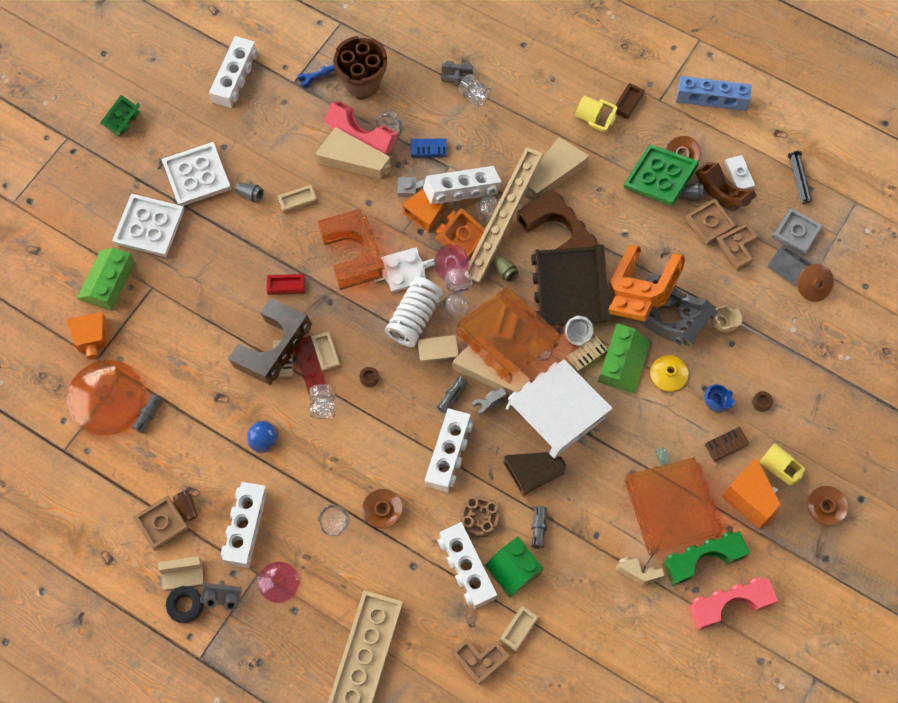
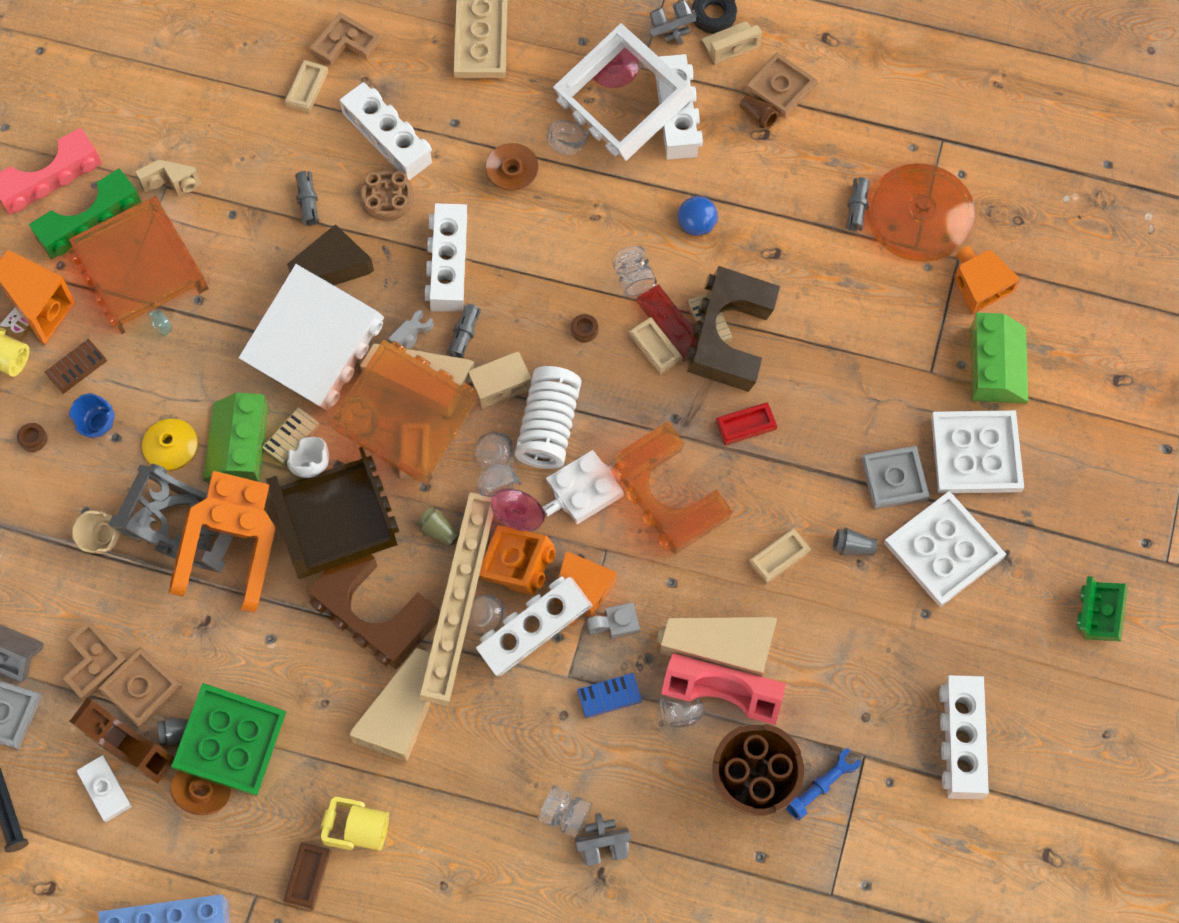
camera: 165 degrees right, 0 degrees up
(206, 226) = (895, 477): none -> light grey tile
(250, 547) = (596, 61): none -> white window
(514, 566) = (325, 146): green slope -> none

